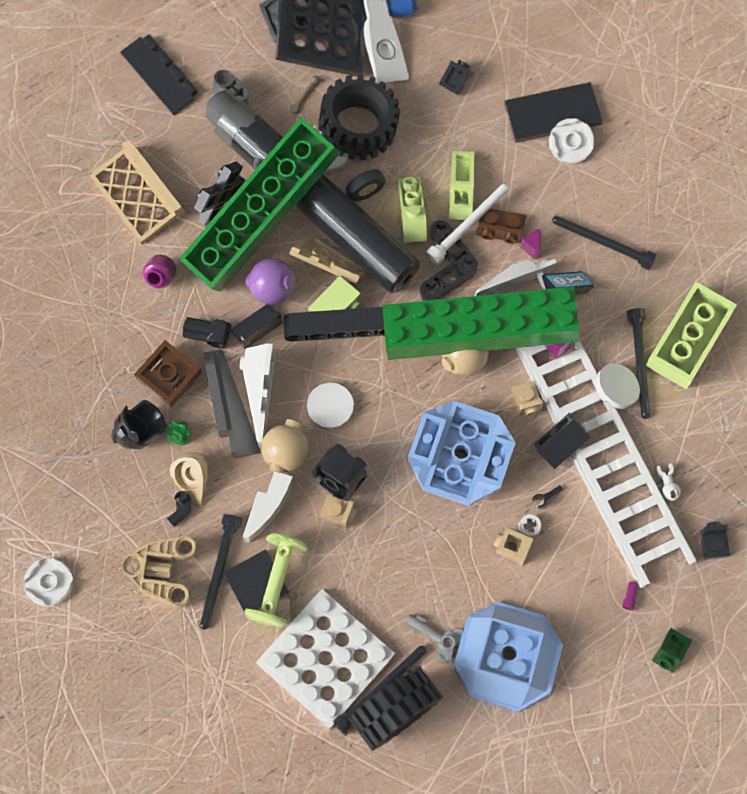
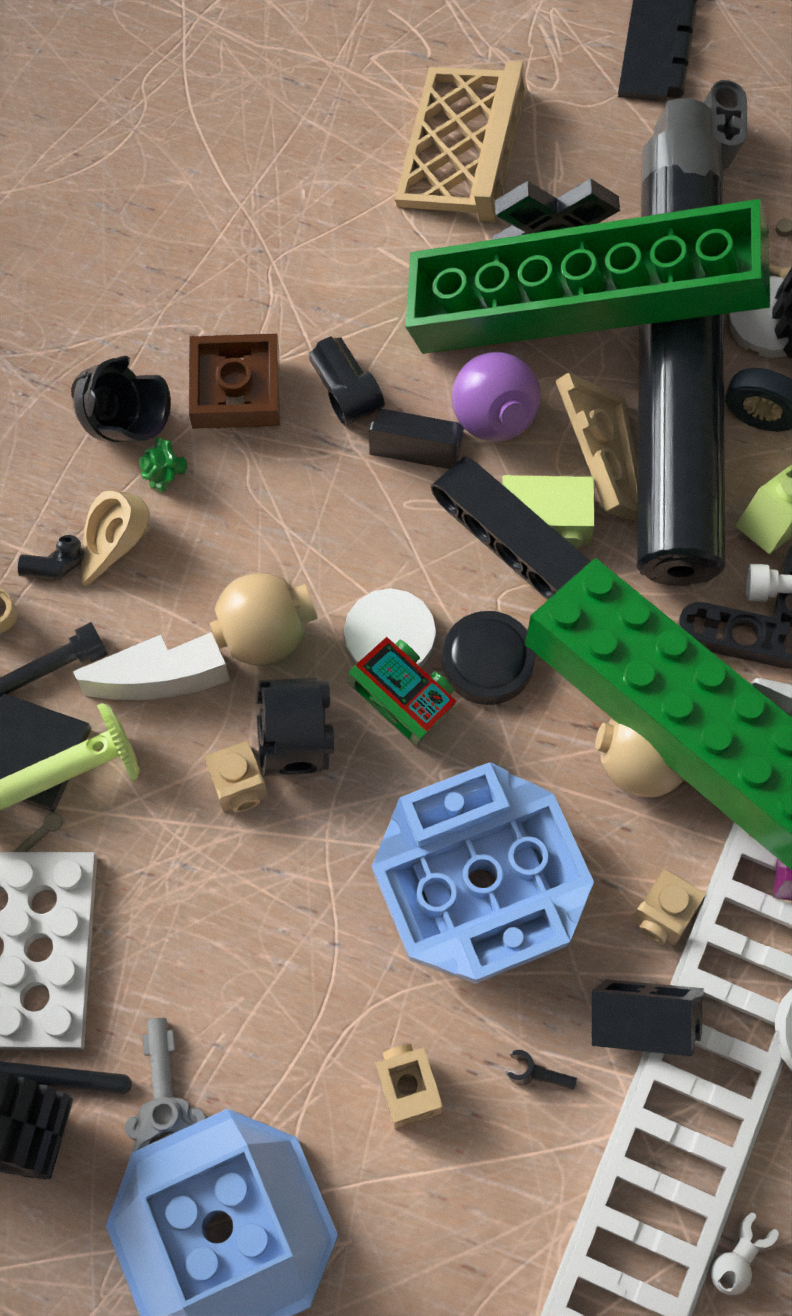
camera: 50 degrees right, 5 degrees down
(159, 271) = (373, 250): magenta head -> none
(228, 407) = (260, 496): dark grey wedge -> none
(258, 374) = (338, 501): white wedge -> none
(363, 420) = (402, 689): none -> slope
(373, 378) = (487, 657): none -> black piece
(523, 521) = (464, 1070): white bush -> none

